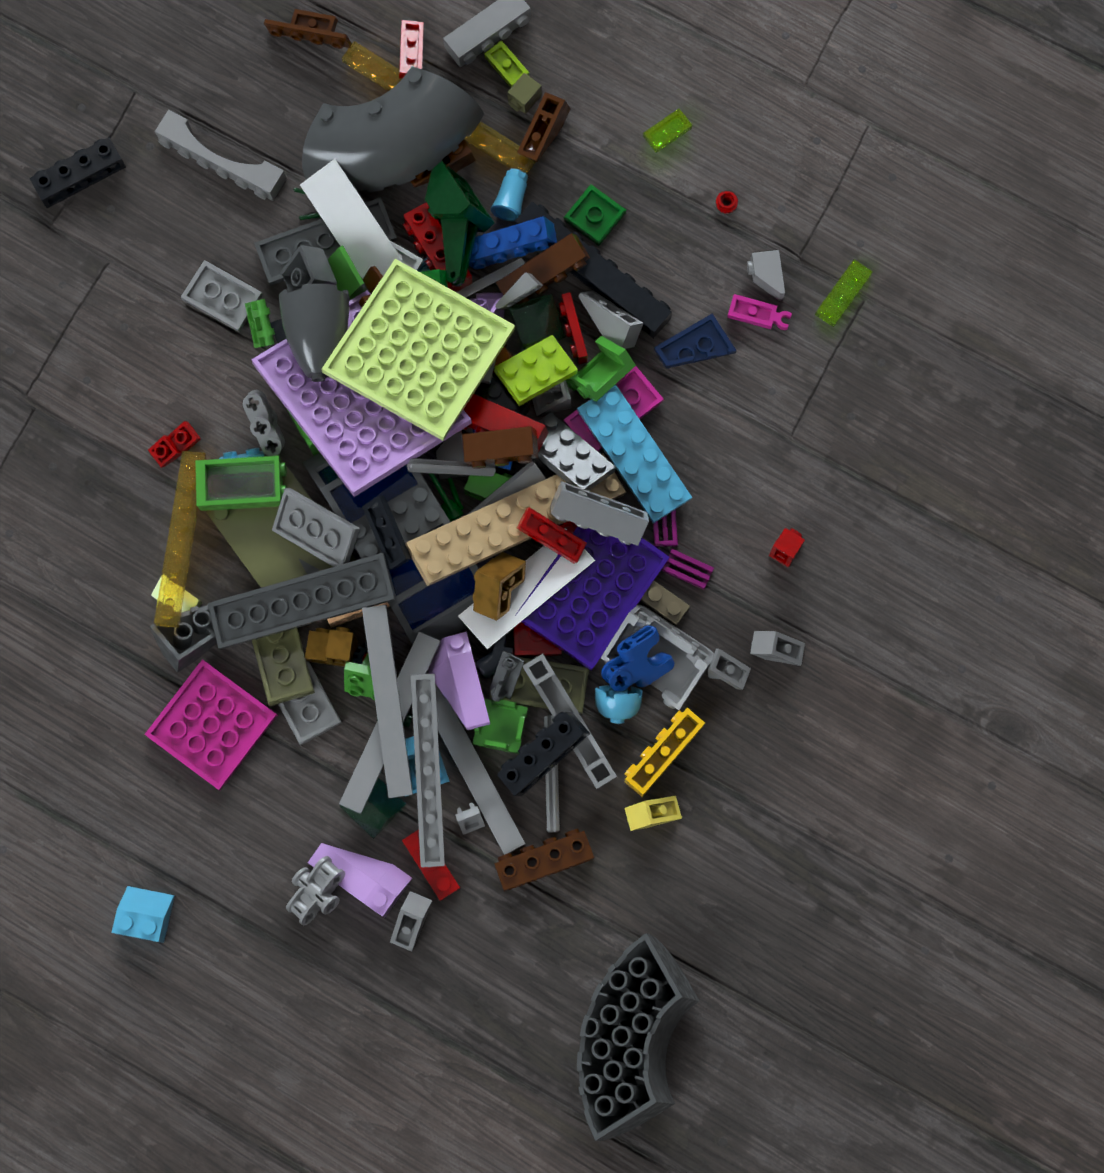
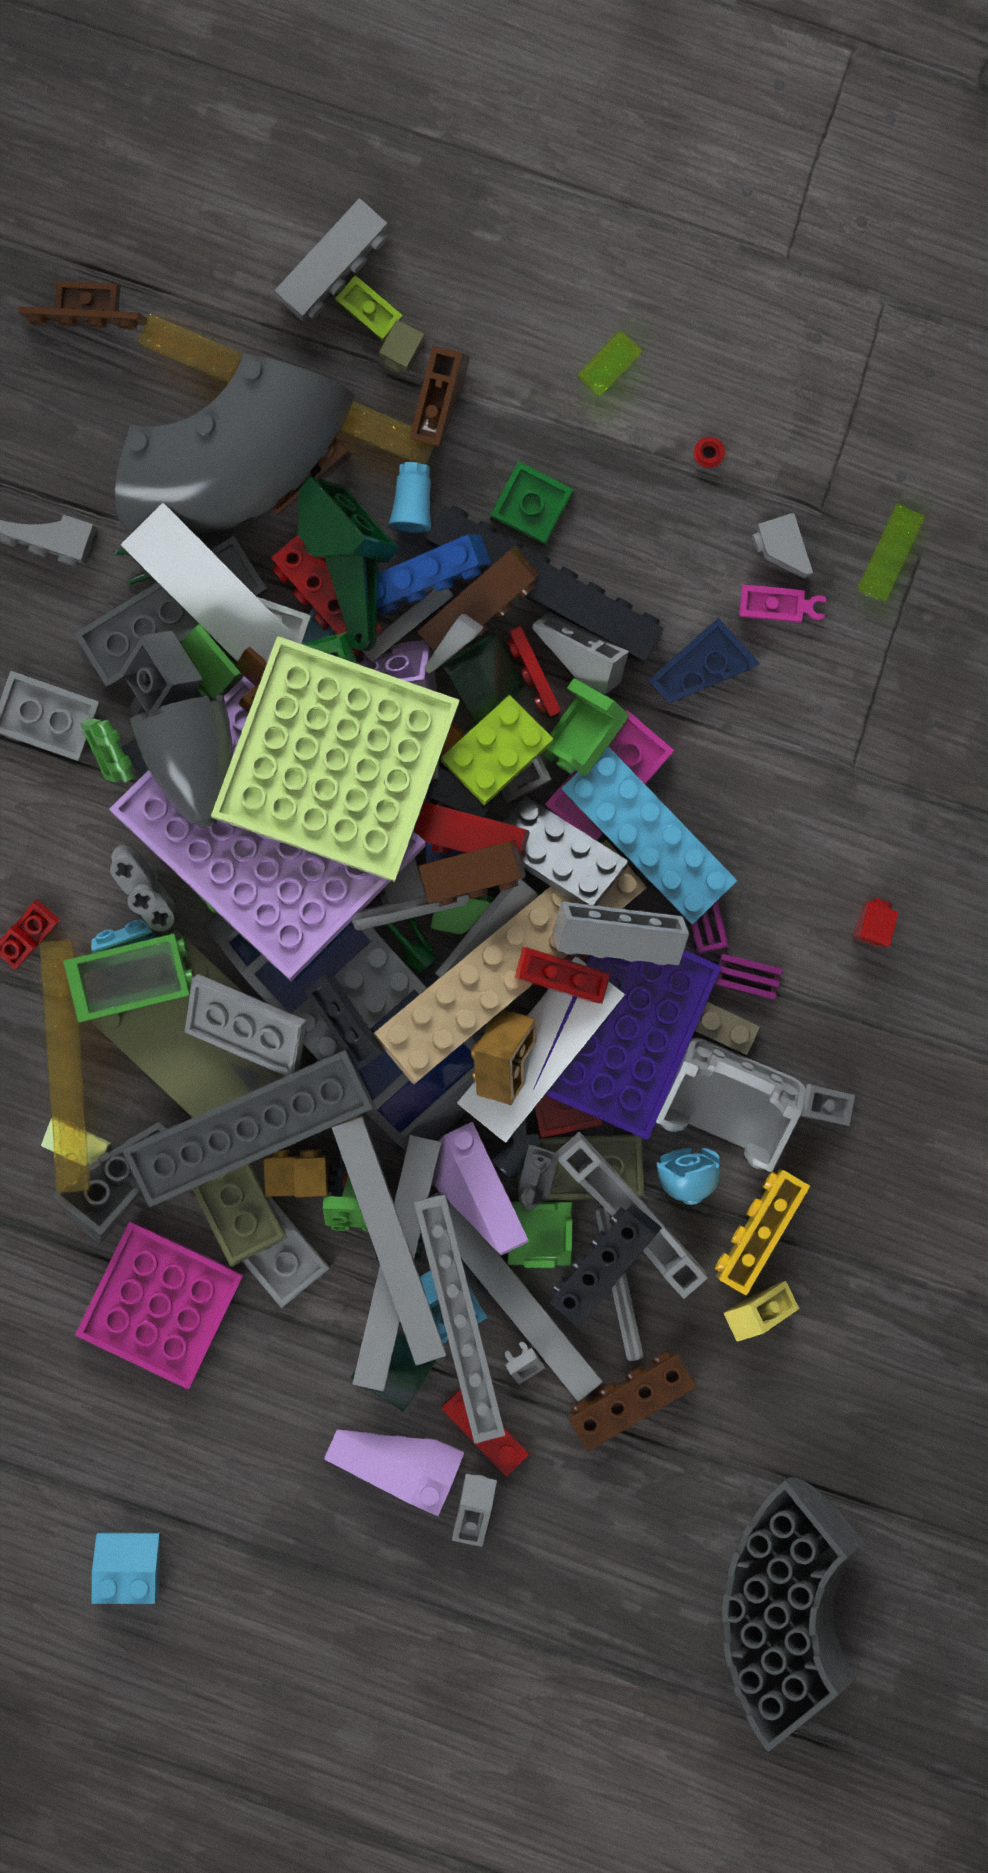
camera: 15 degrees left, 10 degrees up
(315, 890) = (343, 1497): light grey axle -> none
(410, 46) = (232, 312): plate -> none
(634, 665) = (704, 1121): blue piece -> none
(777, 647) = (885, 1062): light grey slope -> none

